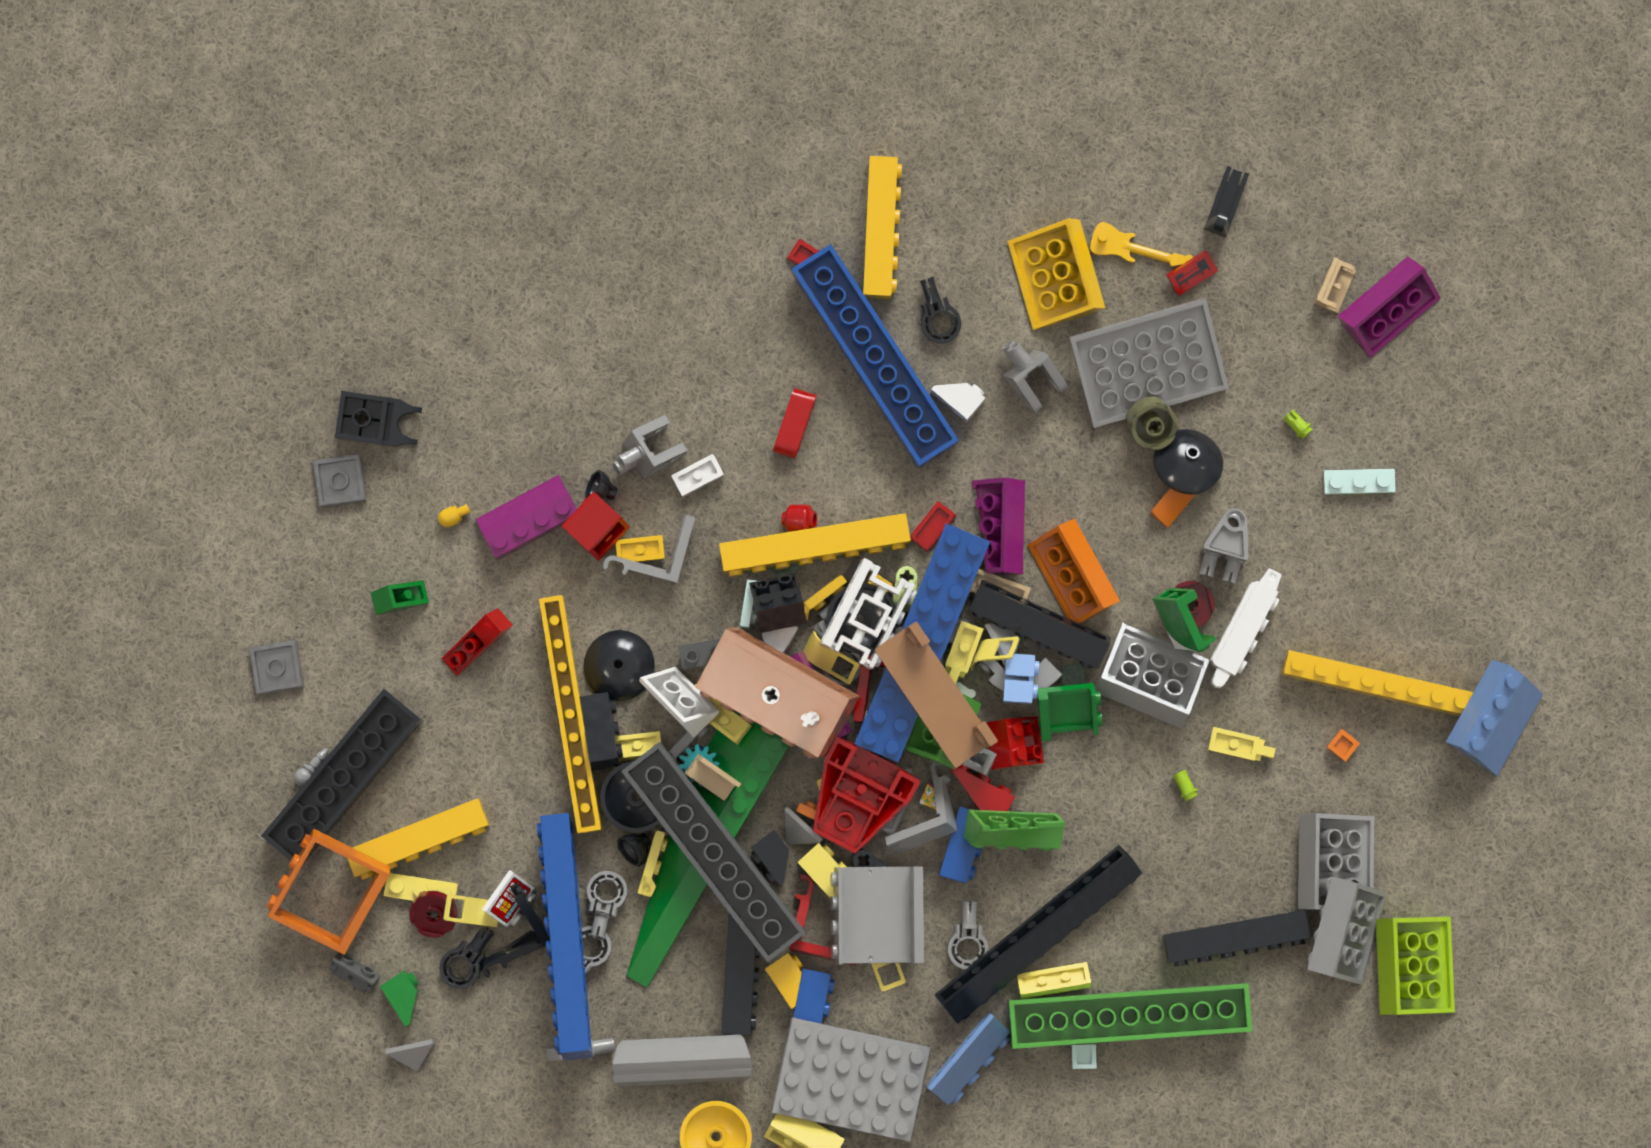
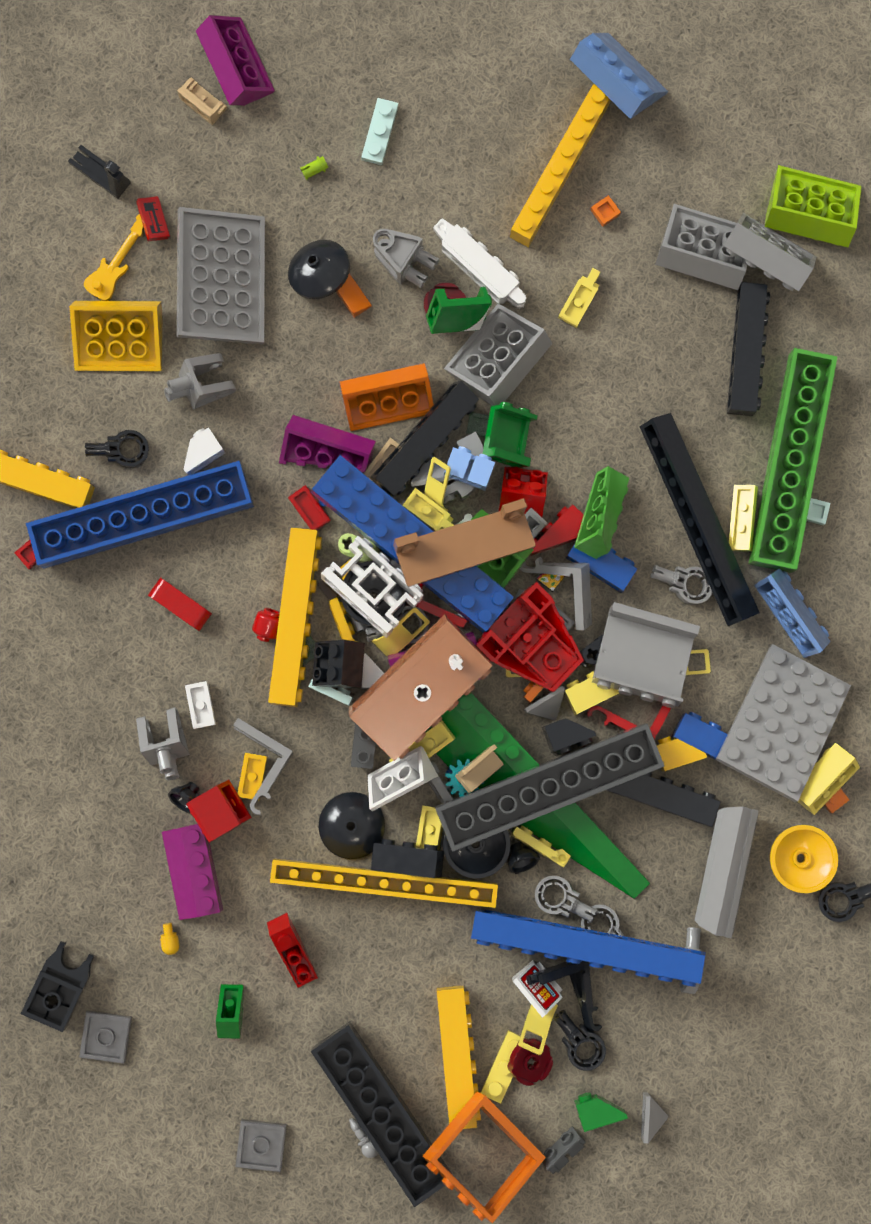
camera: 75 degrees left, 0 degrees up
(1149, 410) = (275, 288): olive brick -> none
(1185, 785) = (603, 355): lime pin -> none

